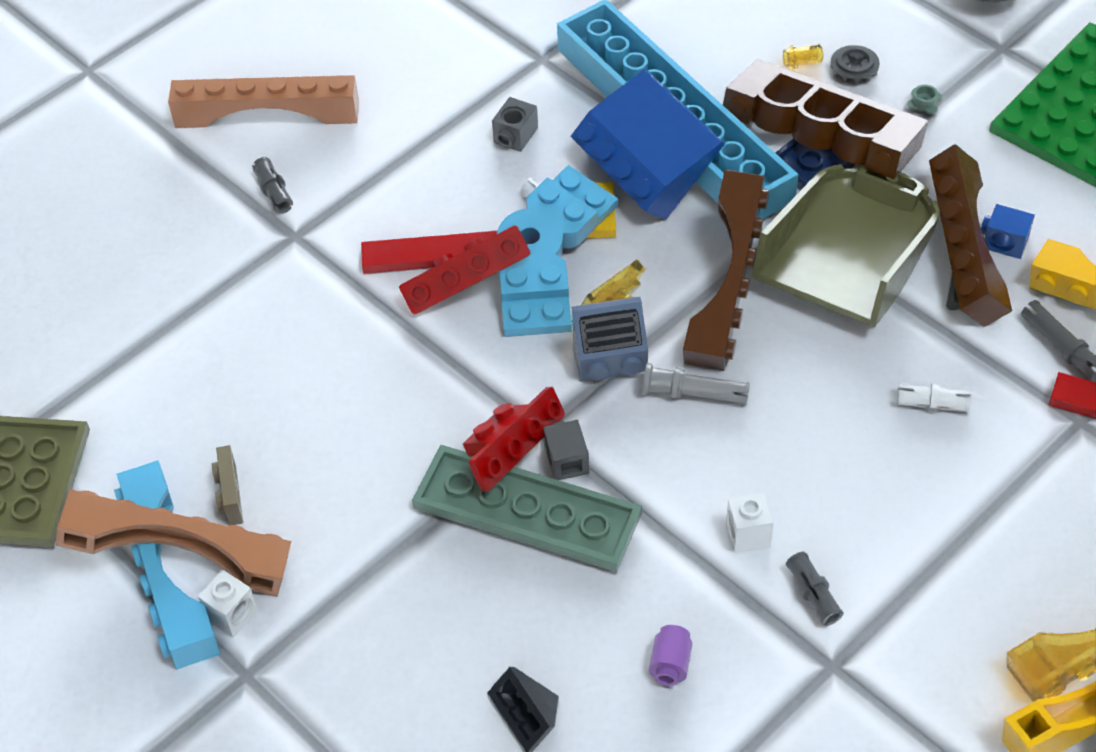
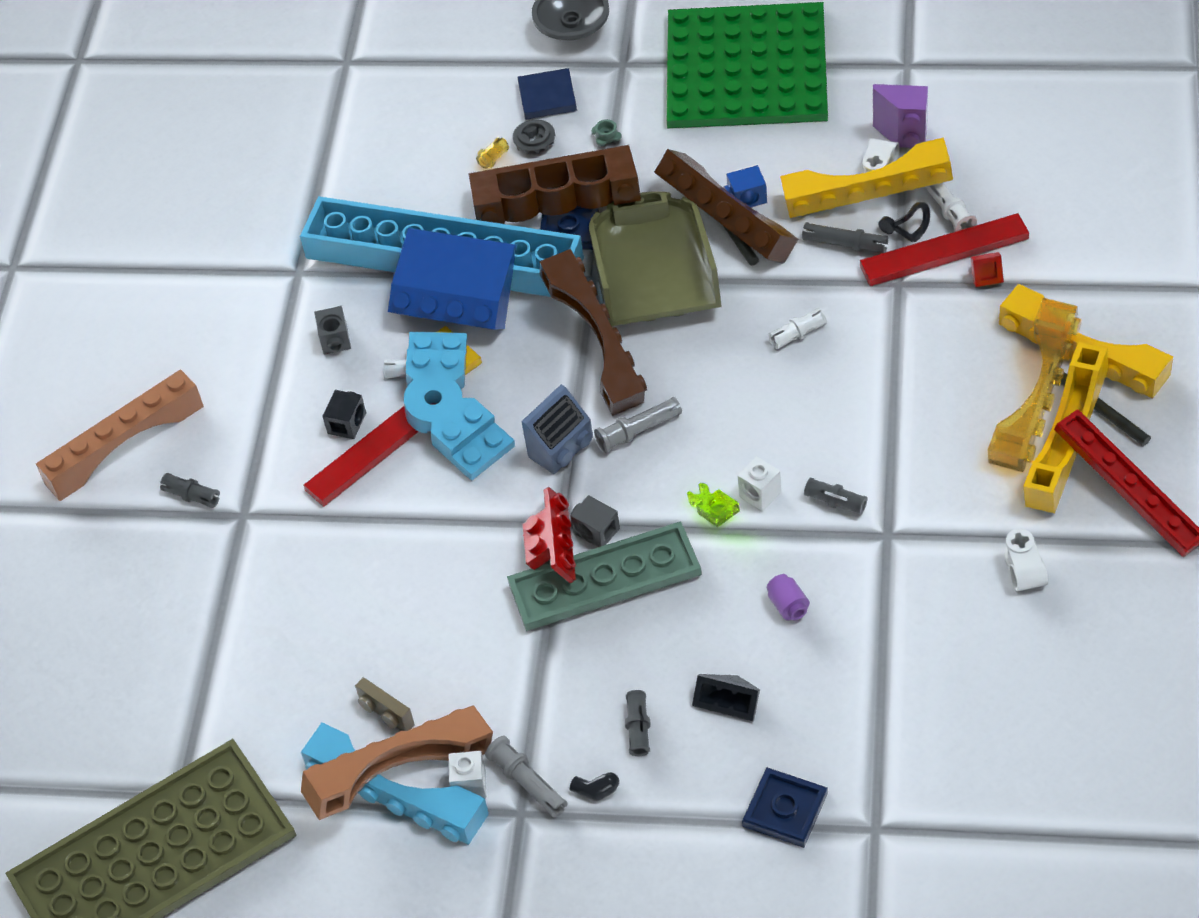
camera: 35 degrees left, 0 degrees up
(278, 629) = (517, 767): none -> light grey pin
(327, 705) = (597, 788): none -> black arm
(436, 652) = (637, 723): none -> dark grey pin
(453, 203) = (344, 414): none -> black brick
(459, 272) = (407, 450): red bracket -> none
(618, 286) = (528, 398): clear yellow plate -> none
(689, 513) = (715, 506): none -> clear neon green plate
(904, 33) = (547, 93): none -> dark blue tile

